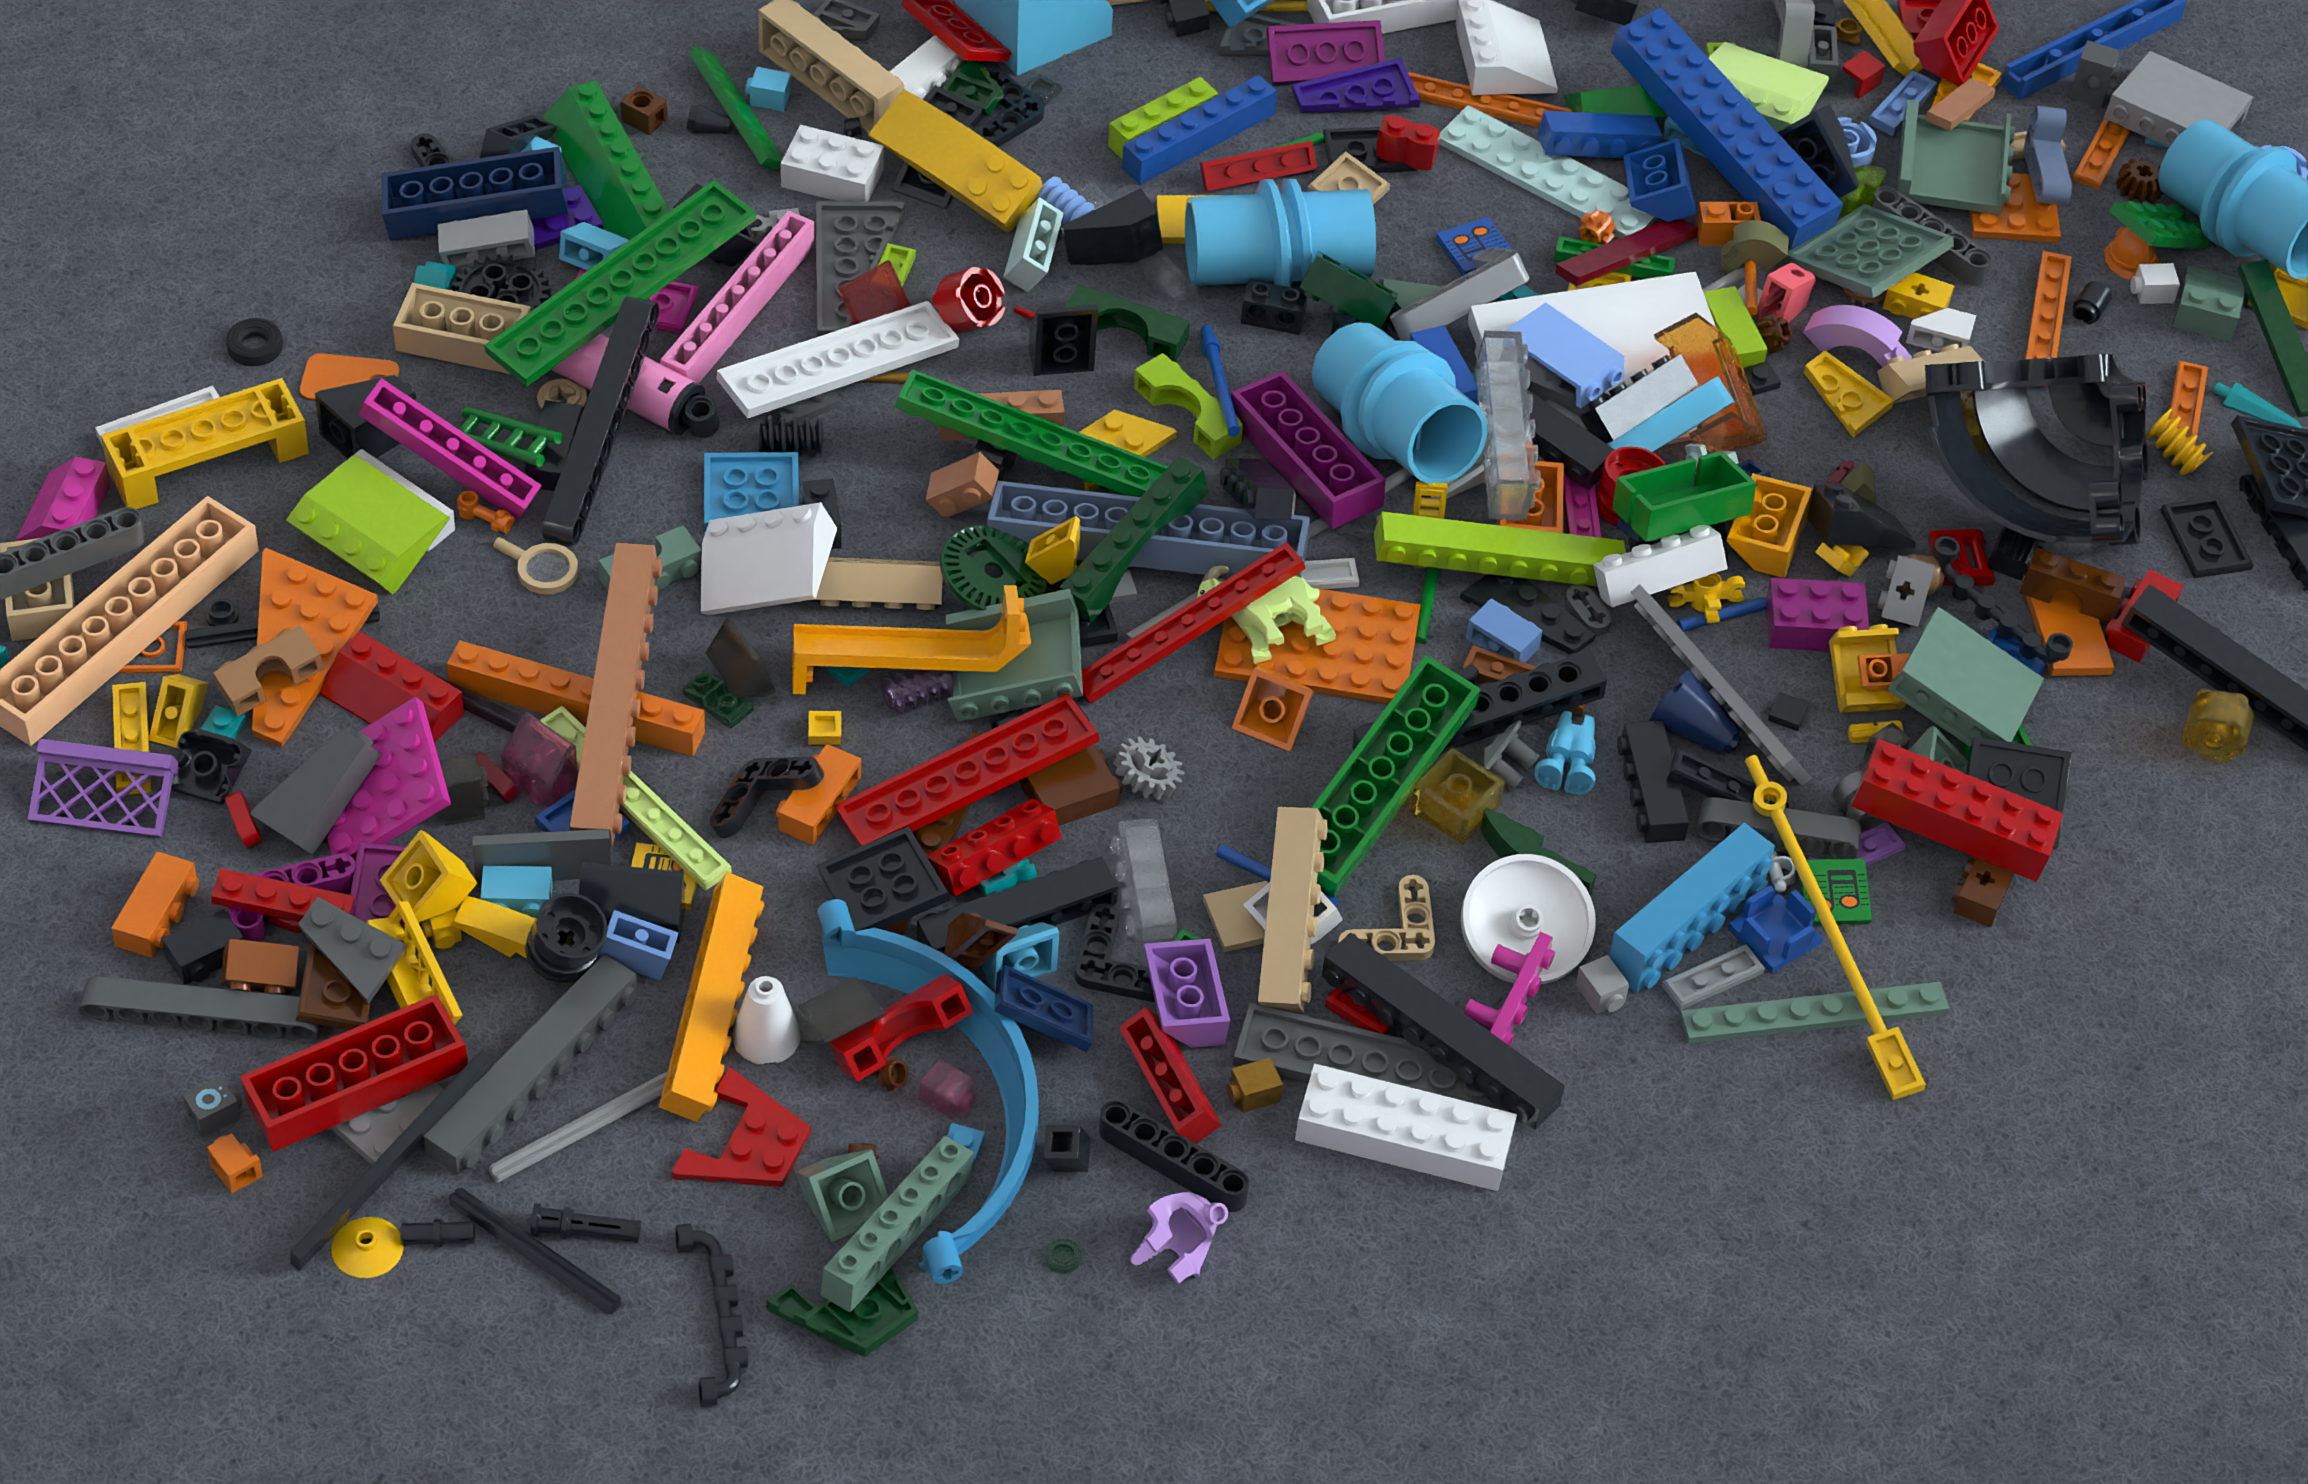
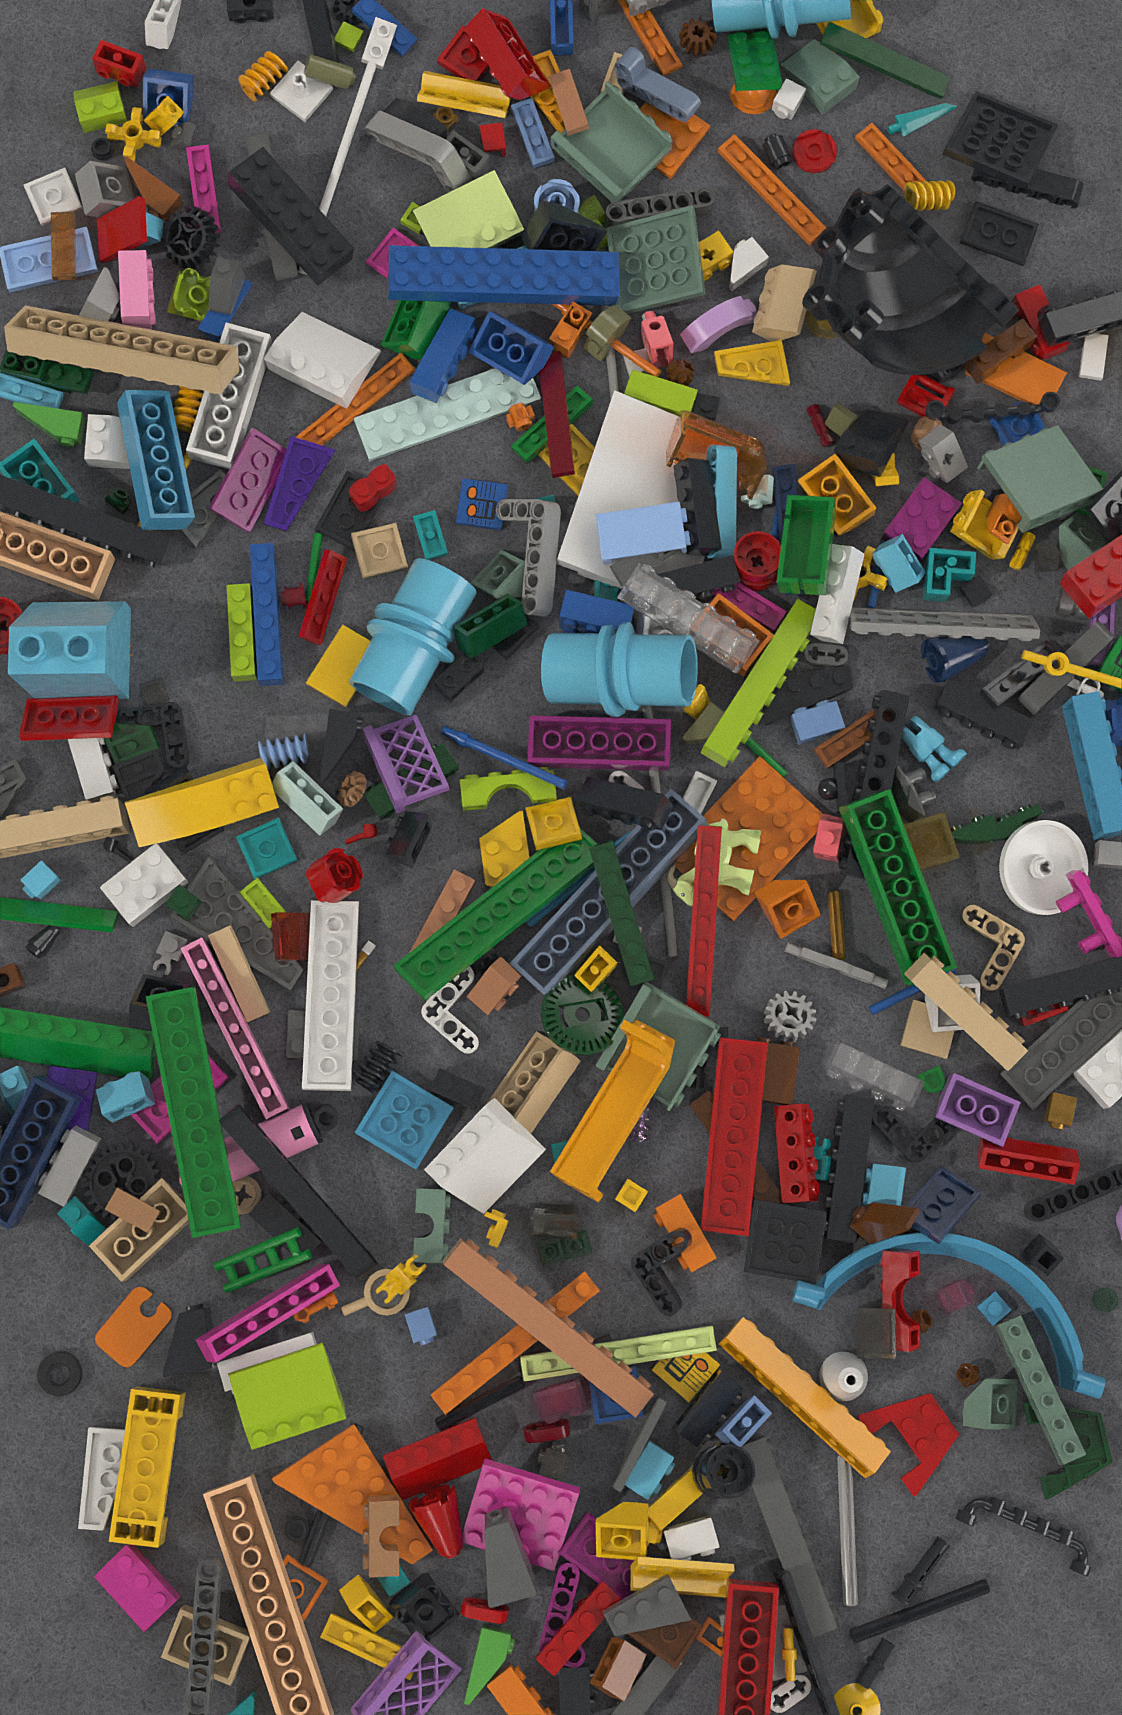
camera: 55 degrees left, 30 degrees up
(199, 842) = (489, 1656): none -> bright green slope
(319, 719) = (440, 1519): none -> red cone
(343, 1160) = (793, 1697): none -> white beam
(389, 1125) = (789, 1654): none -> yellow bar
(468, 971) = (691, 1538): none -> white brick
(477, 295) = (132, 1210): none -> medium nougat tile
(533, 609) = (421, 1325): none -> medium blue brick
(571, 555) = (400, 1278): none -> yellow pin
(692, 625) = (496, 1232): none -> yellow bracket
(800, 280) = (239, 973): none -> tan tile
(838, 194) = (183, 902): none -> dark green brick
(895, 472) = (444, 1015): none -> white beam
(953, 247) = (266, 848): none -> teal tile
(1073, 278) = (351, 795): none -> medium nougat gear
(1126, 278) = (385, 763): none -> medium lavender fence
(1167, 450) = (553, 823): none -> yellow tile
(1237, 142) = (293, 596): none -> dark red brick
(1244, 782) = (833, 963): none -> light grey piece
(1290, 769) = (836, 925): none -> pearl gold axle
(1374, 691) = (829, 838): none -> coral torso
(1403, 220) = (430, 535): none -> teal plate
(1748, 609) = (898, 563): none -> medium azure brick
(1780, 657) = (944, 566): none -> teal brick
(2126, 345) = (818, 156): none -> red tile
(2159, 688) = (1093, 356): none -> white tile

